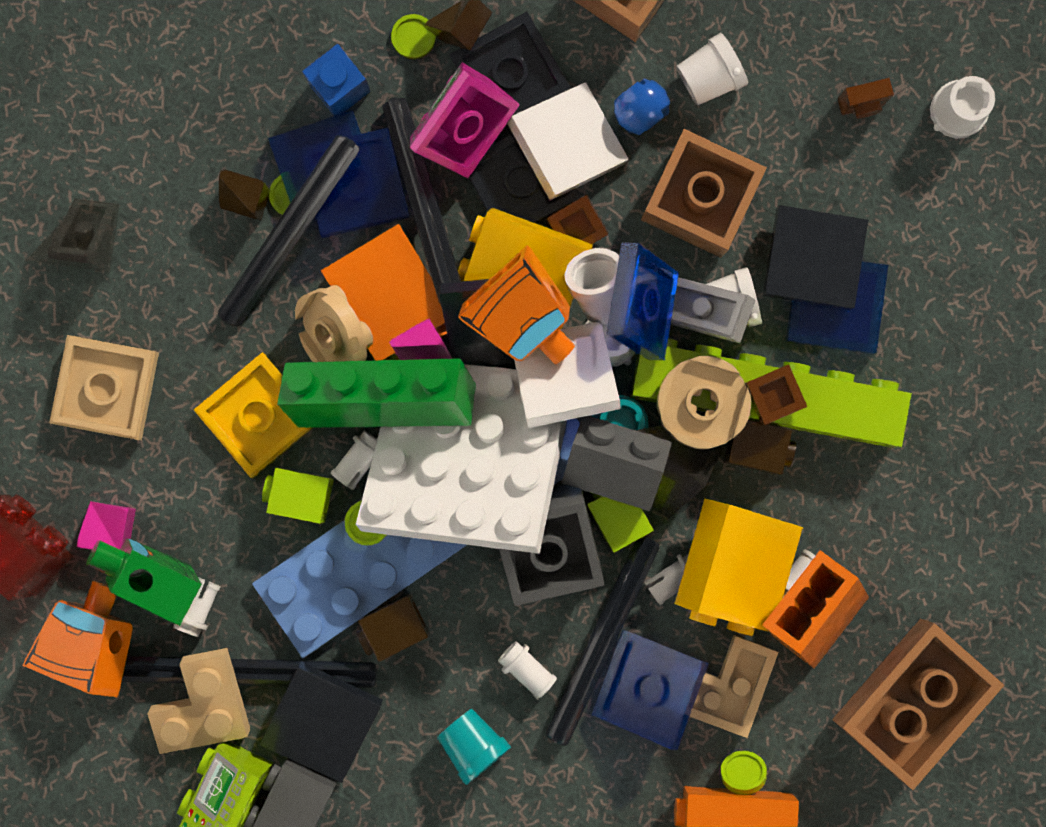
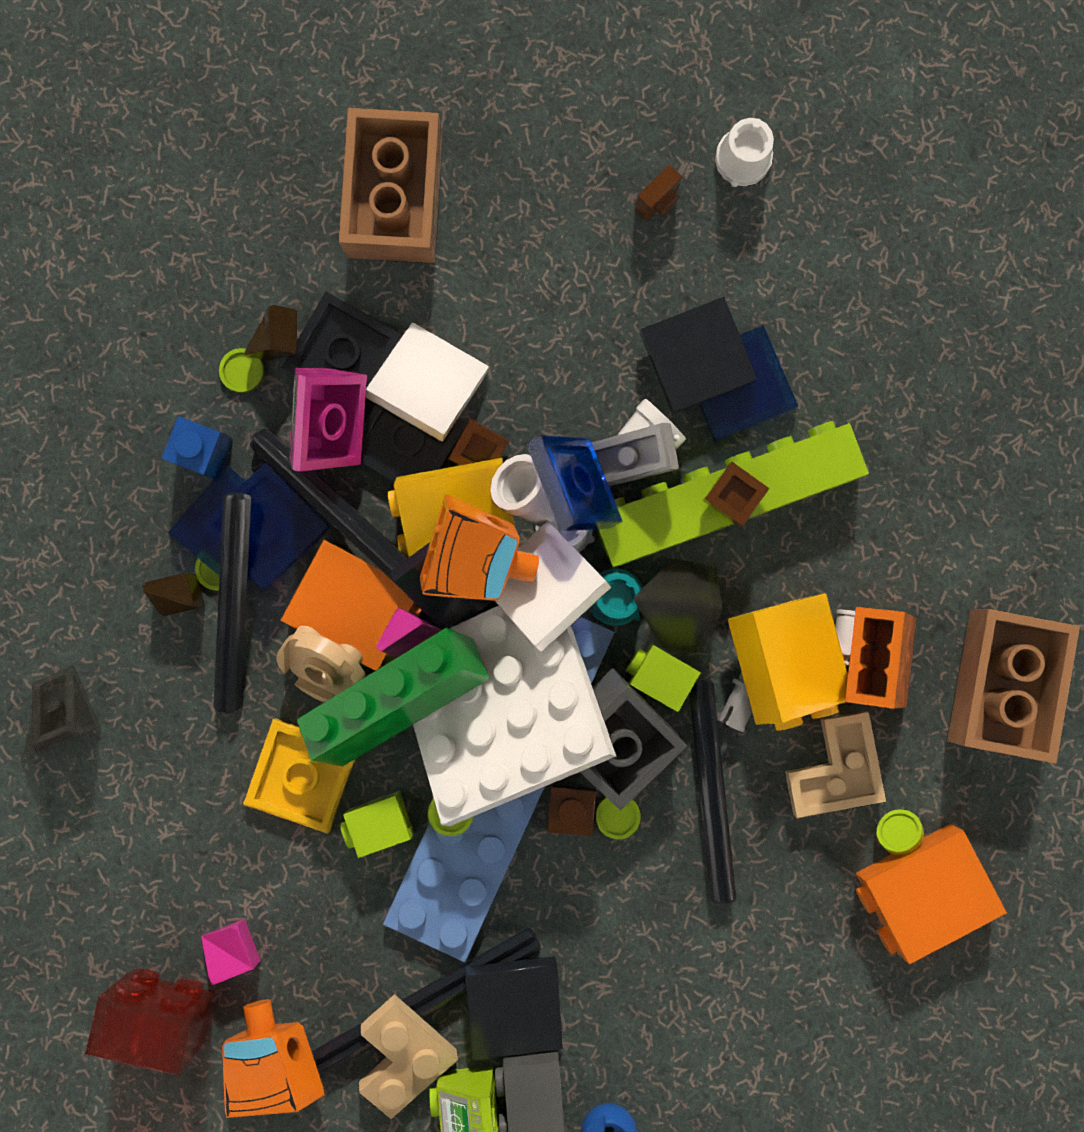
camera: 25 degrees left, 0 degrees up
(104, 387) = (154, 832): tan plate -> none
(163, 586) = (306, 979): green torso -> none
(198, 611) = (347, 975): white pin -> none
(356, 460) = (409, 764): white pin -> none
(392, 628) = (527, 890): dark brown brick -> none
(471, 584) = (571, 810): none -> reddish brown plate
(472, 745) = (656, 950): teal piece -> none
(505, 617) = (617, 822): none -> lime piece
(526, 669) = (662, 855): white pin -> none
(616, 462) = (635, 634): dark grey brick -> none
(641, 106) = (472, 314): blue piece -> none
(650, 689) = (778, 810): clear blue tile -> none
(703, 193) = (570, 357): medium nougat brick -> none
(712, 71) = (515, 248): white piece -> none
(725, 389) = (692, 515): tan plate -> none
(761, 448) = (747, 545): dark brown brick -> none

